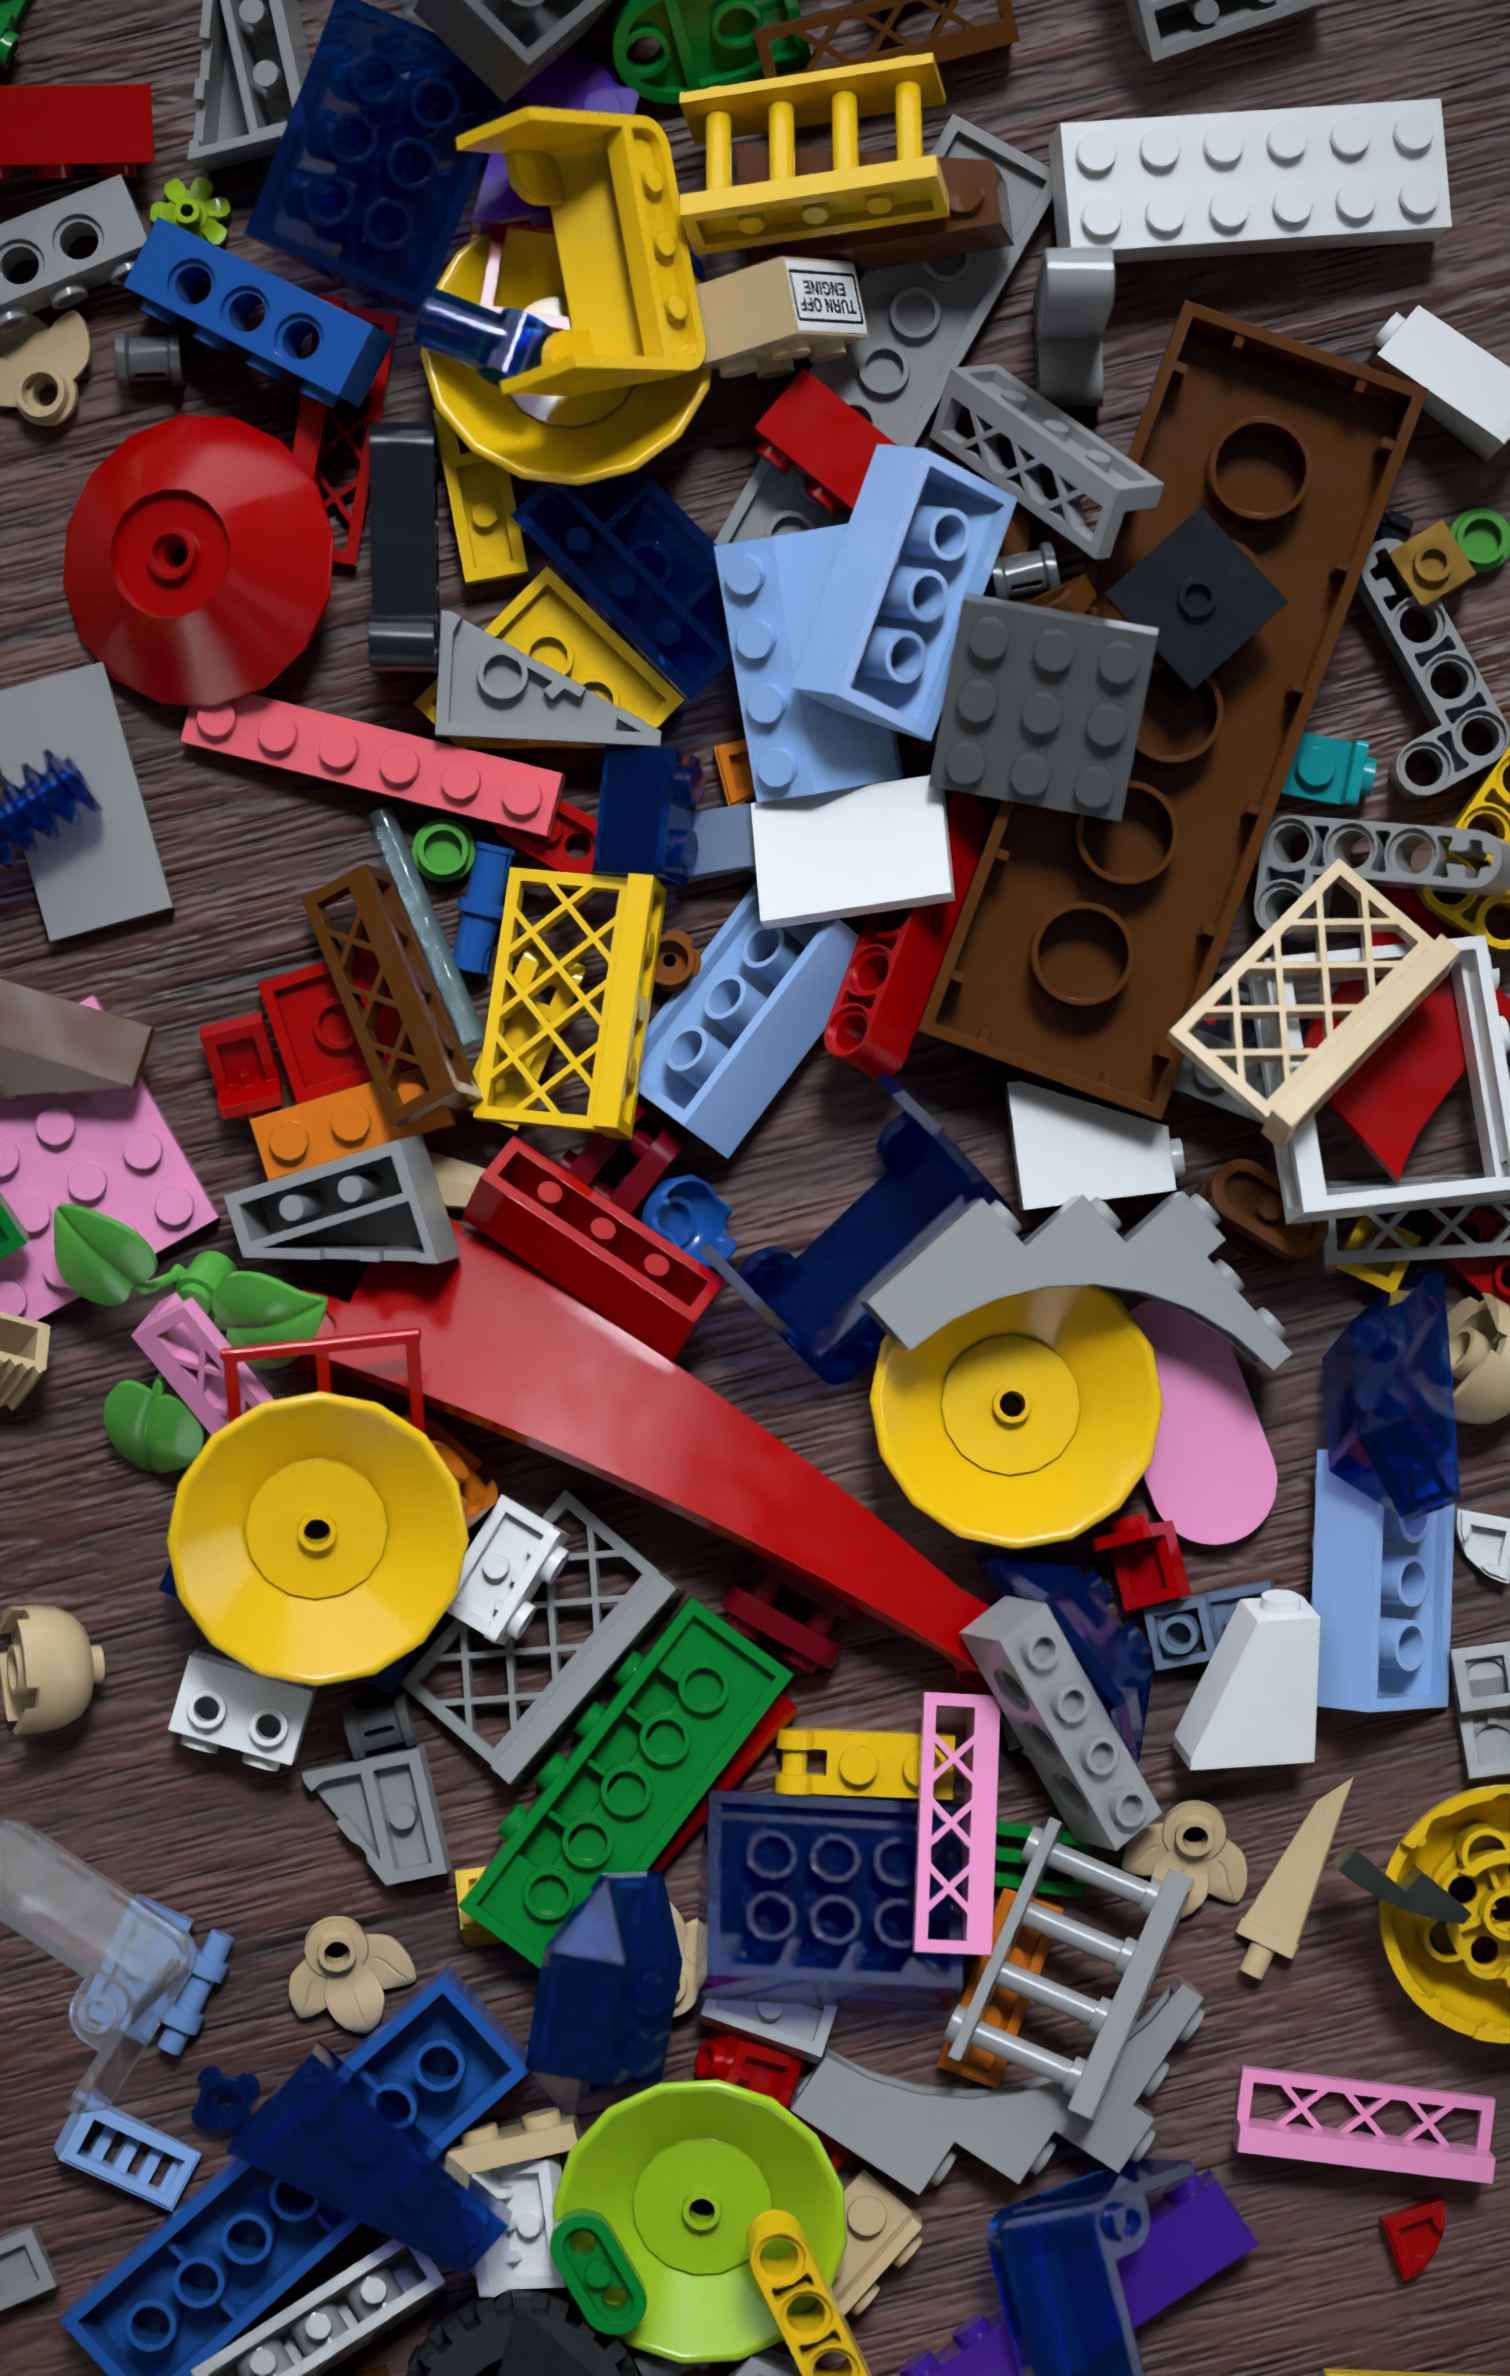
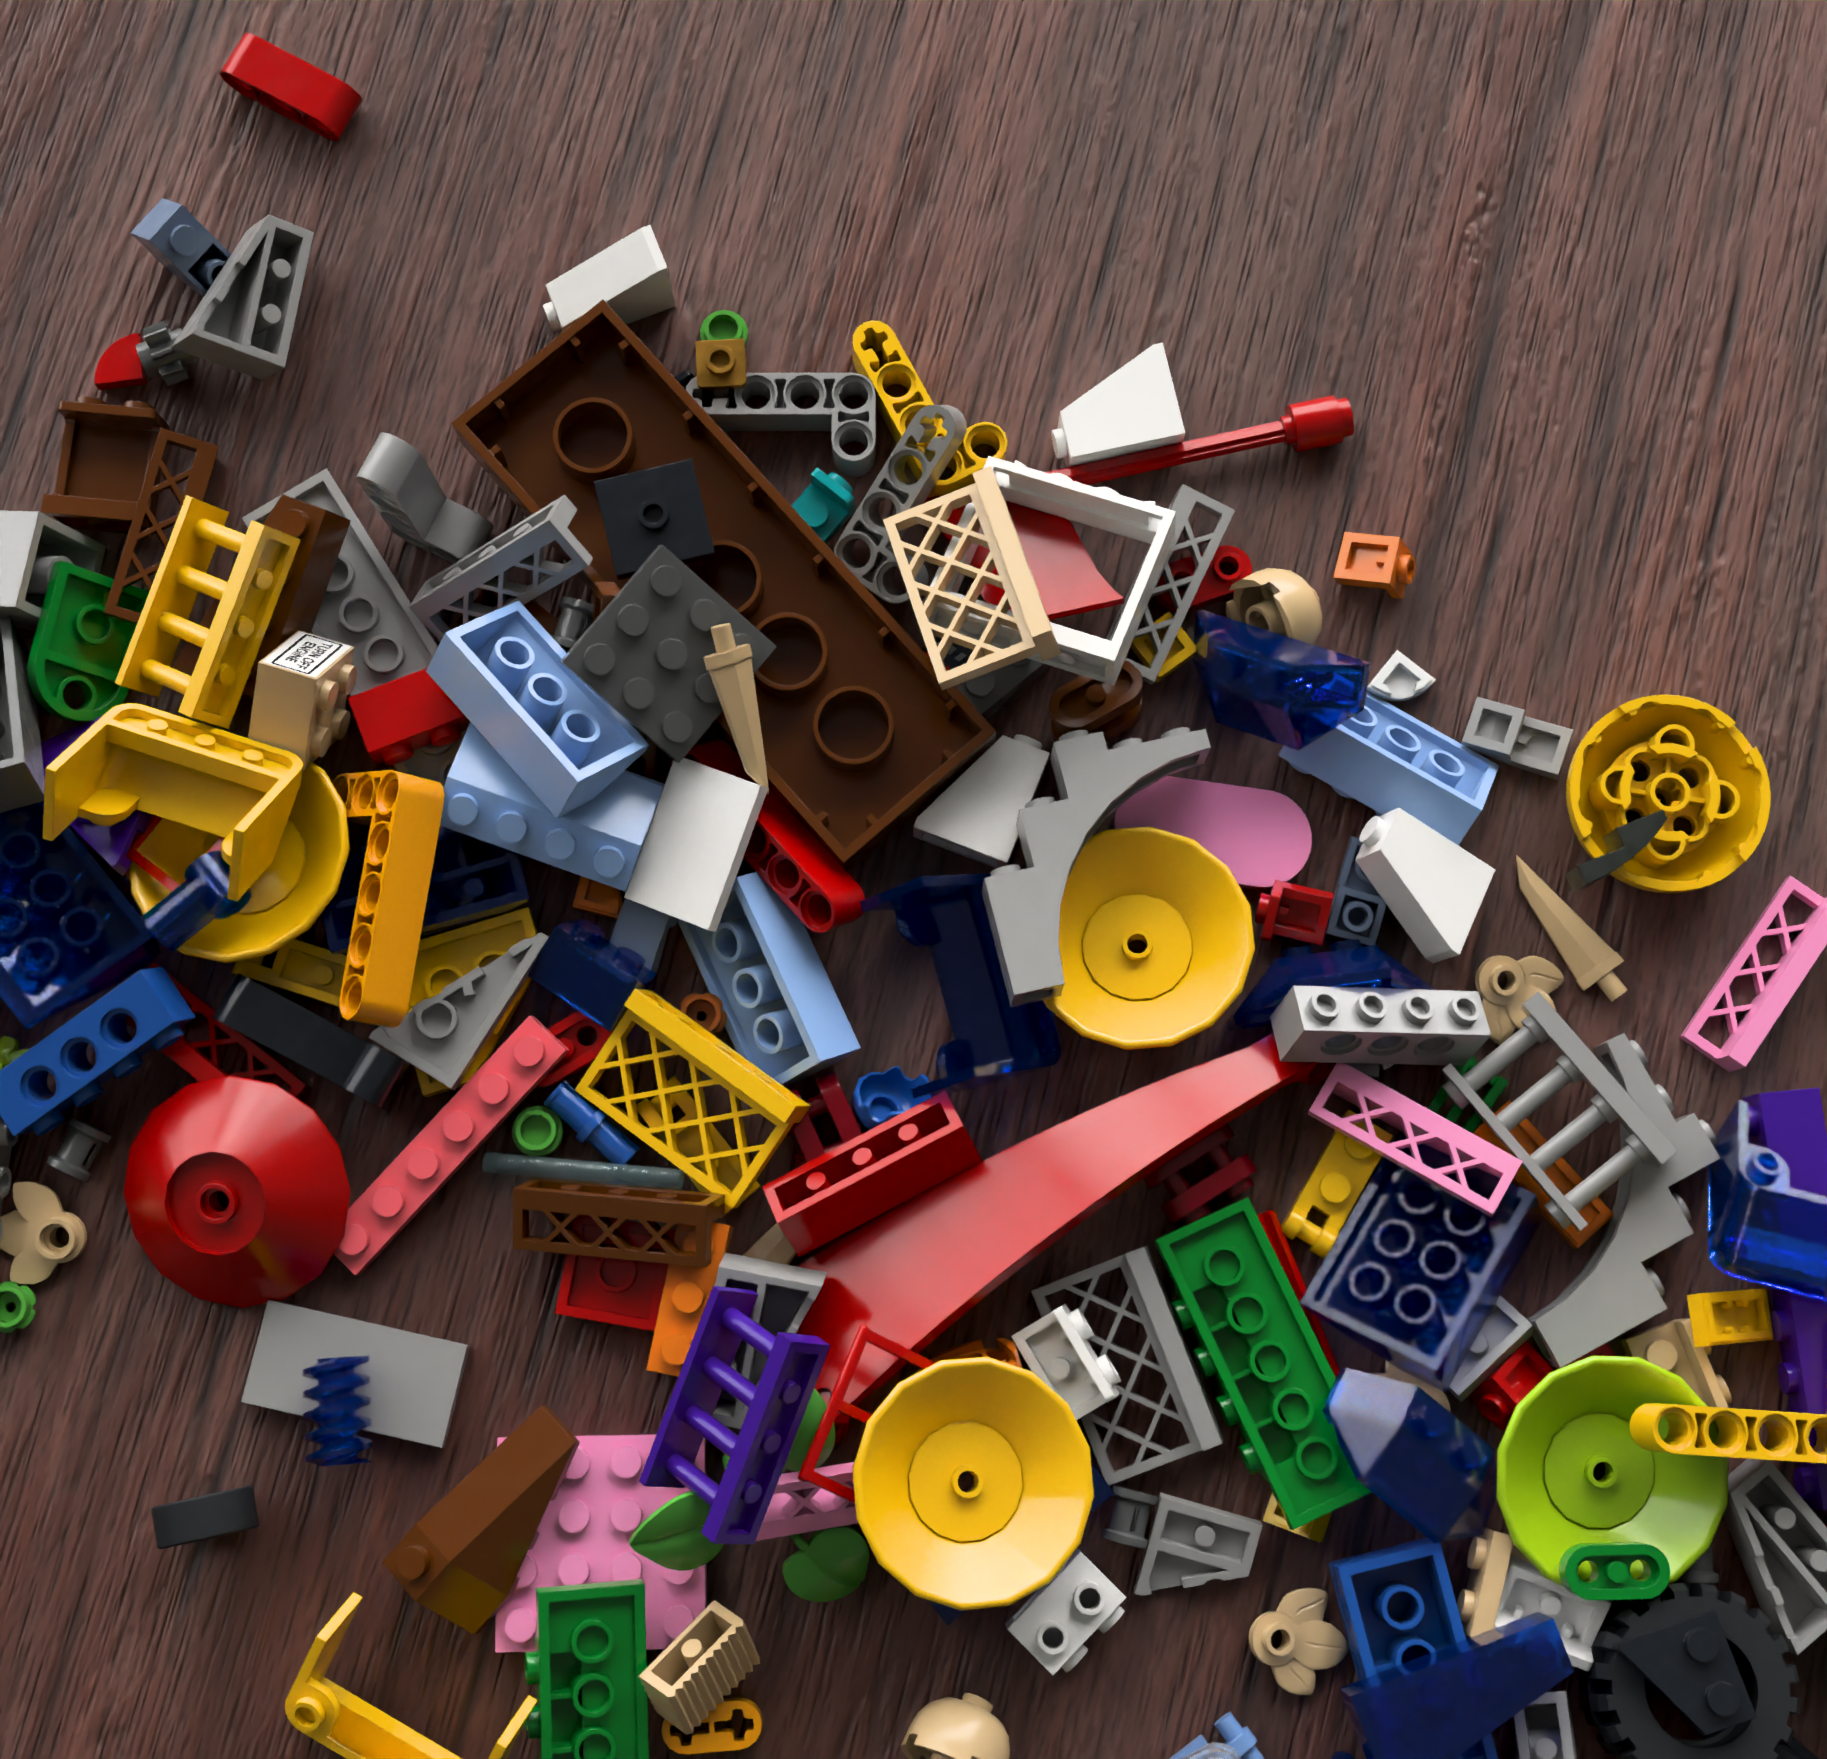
camera: 65 degrees left, 10 degrees down
(243, 1066) = (607, 1356): red bracket -> none
(255, 1291) = (769, 1425): none -> dark purple fence
(615, 546) = (392, 890): none -> light orange beam
(947, 2269) = (1730, 1317): none -> yellow plate
(1045, 803) = (735, 687): none -> tan bar
(1252, 180) = (401, 342): white brick -> none

